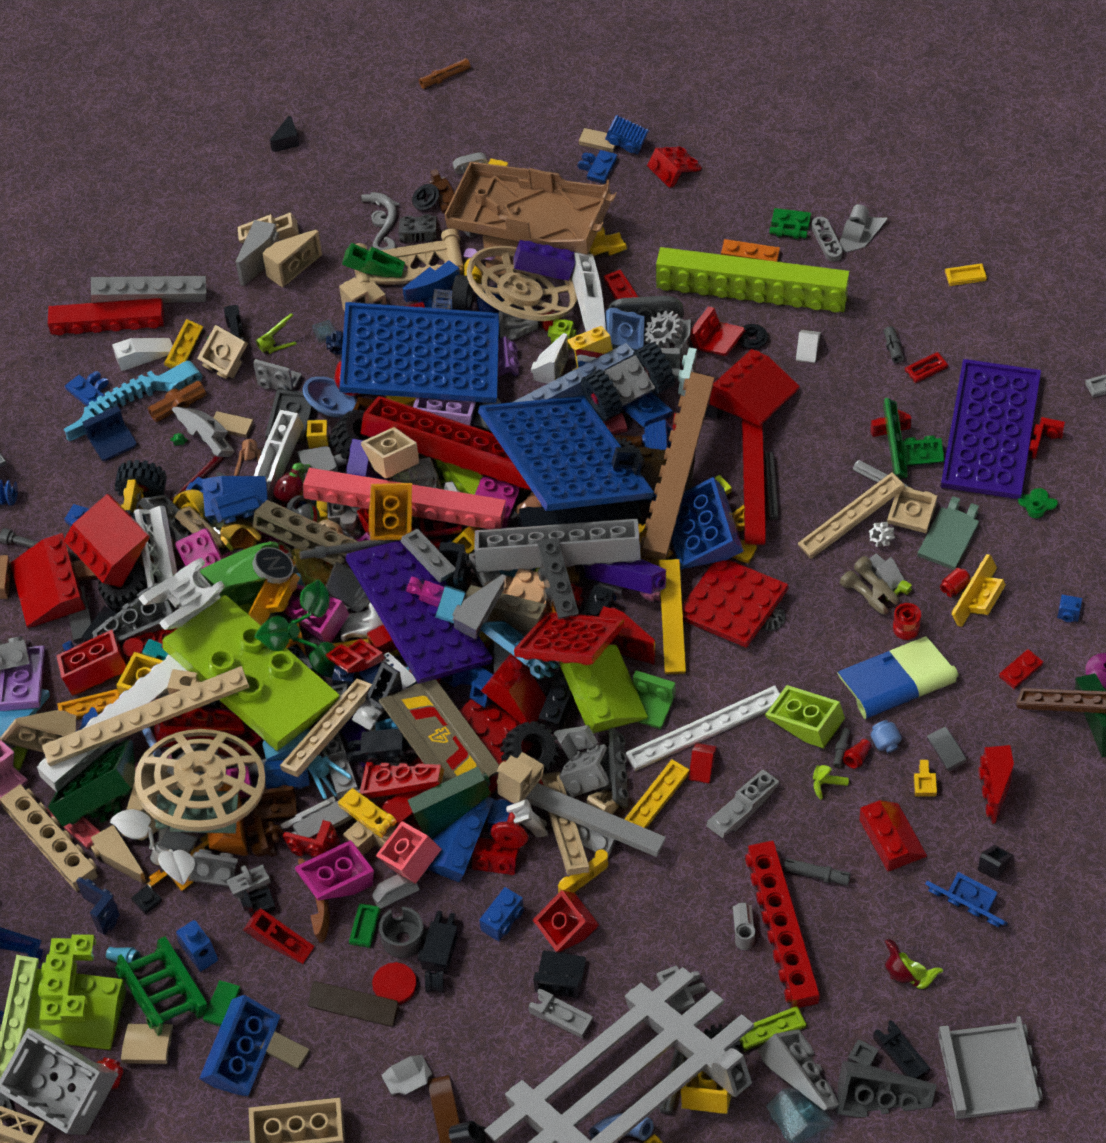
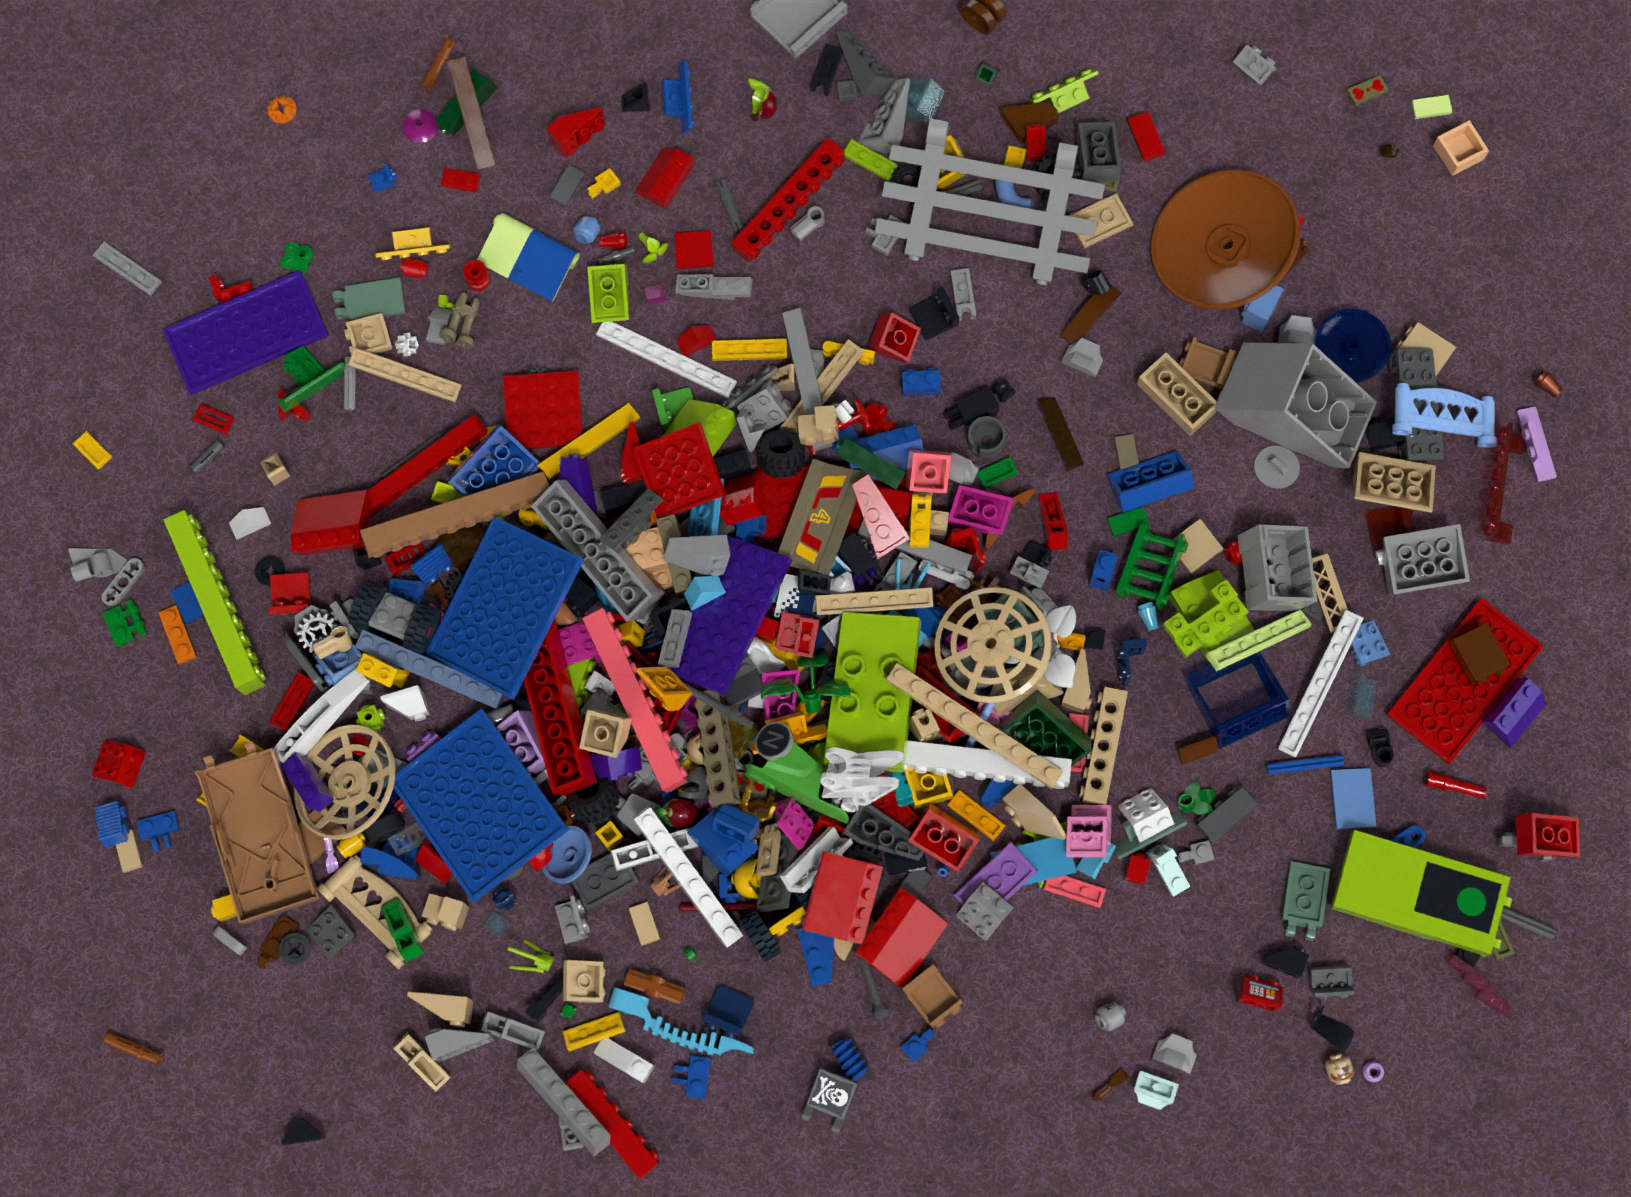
camera: 125 degrees left, 20 degrees up
(132, 645) = (909, 816): red tile -> none
(207, 427) = (664, 942): light grey slope -> none
(234, 454) = (687, 876): none -> white brick
(235, 293) = (511, 1030): none -> light grey slope
(377, 217) = (320, 990): light grey plant -> none
(394, 982) = (1024, 419): red tile -> none
(429, 592) = (708, 612): dark pink plate -> none
(628, 458) = (474, 549): black bracket -> none
(642, 330) = (337, 641): none -> tan piece
(690, 365) = (348, 584): light aqua plate -> none
(777, 756) = (655, 293): none -> magenta slope
(796, 815) = (694, 250): none -> red tile
(842, 383) = (275, 469): none -> tan slope

